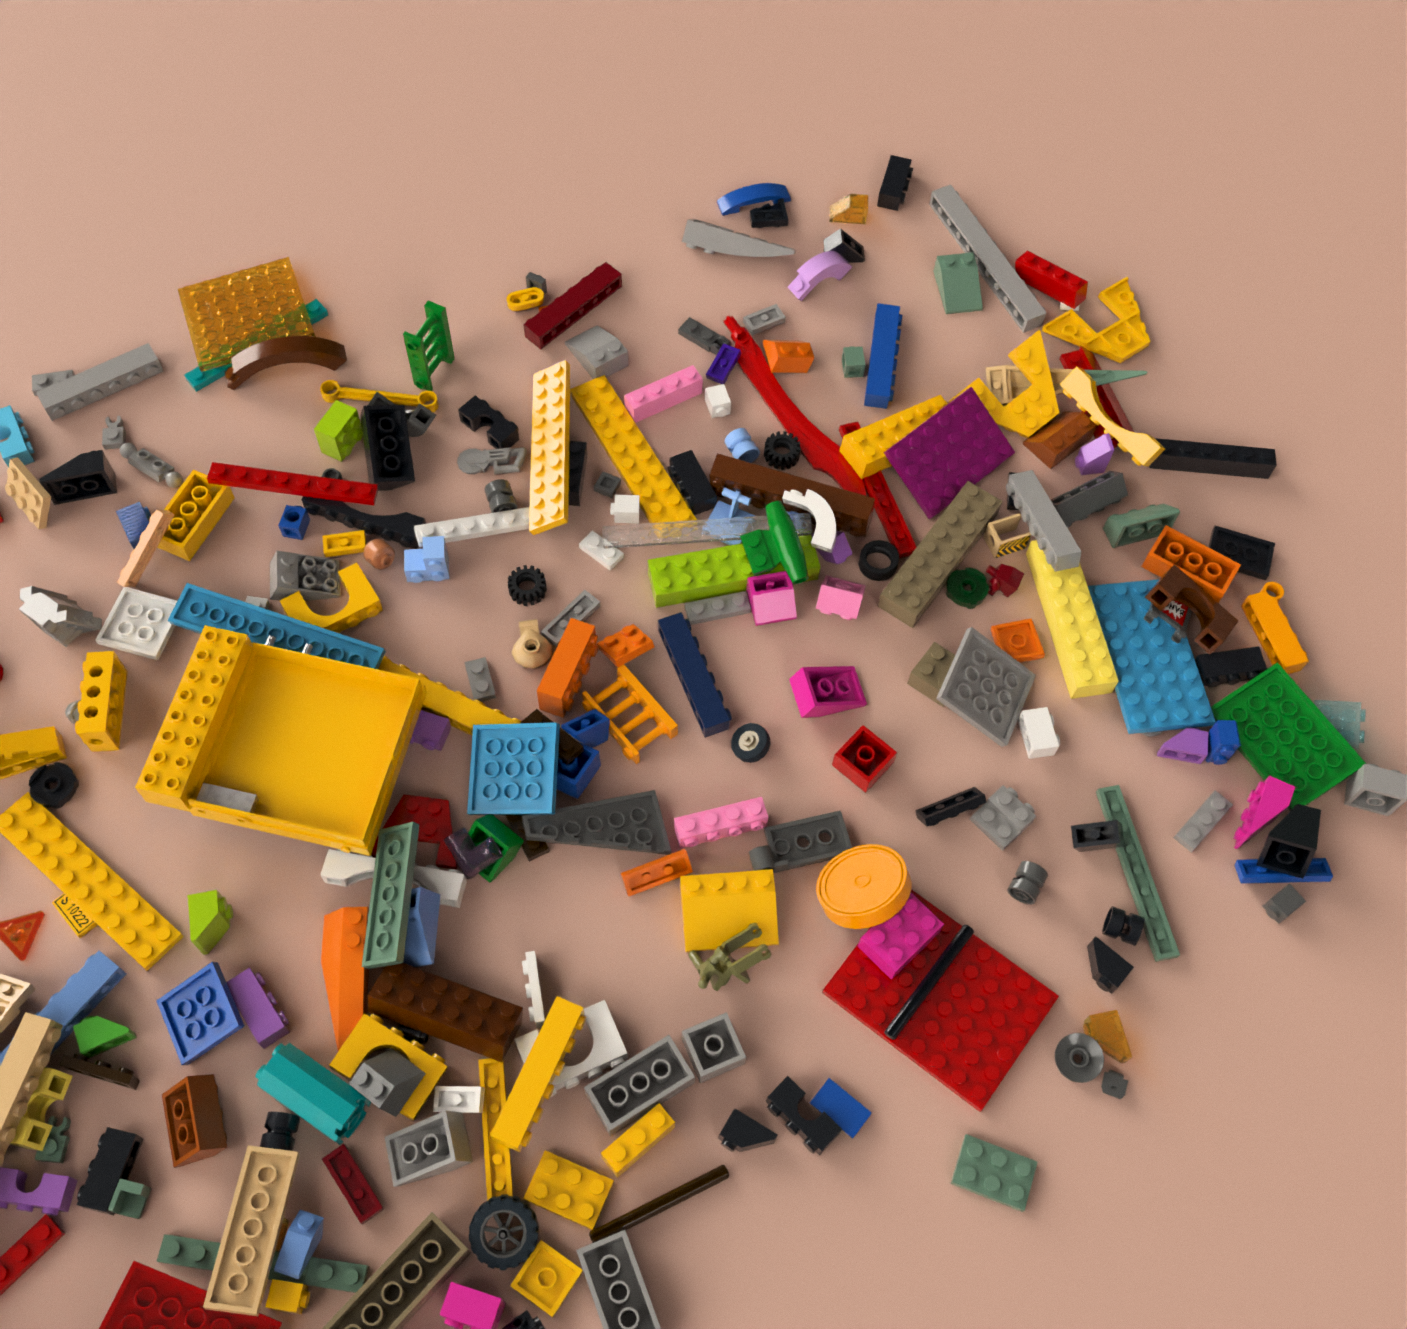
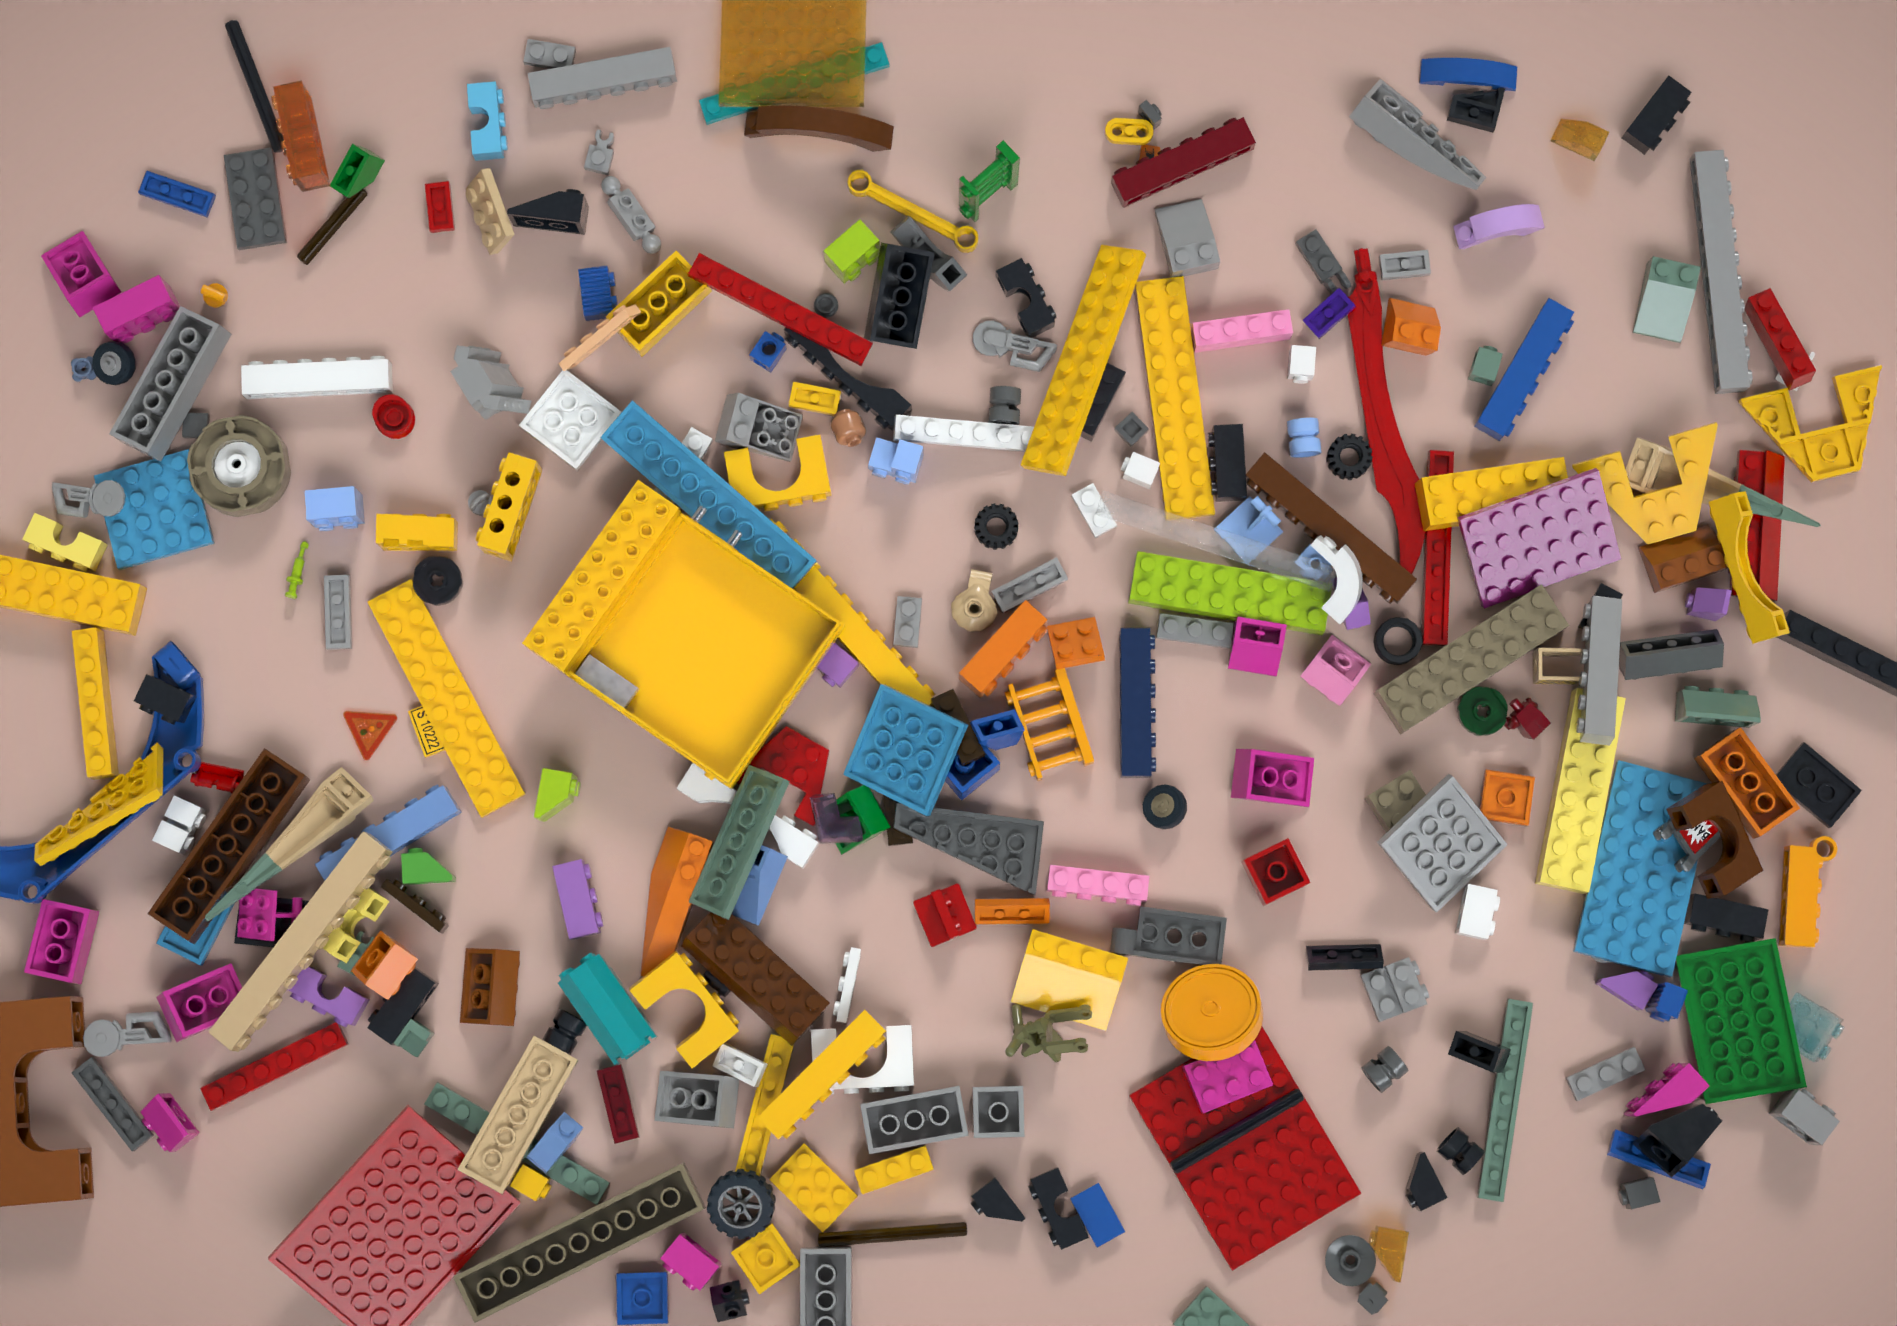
camera: 25 degrees right, 20 degrees up
(80, 1135) = (384, 965): none -> brick
(200, 1013) = (522, 886): plate -> none
(387, 1080) = (679, 1026): dark grey slope -> none
(598, 898) = (944, 915): none -> red bracket
(779, 544) = (1283, 595): green plate -> none
(845, 245) = (1547, 194): black slope -> none

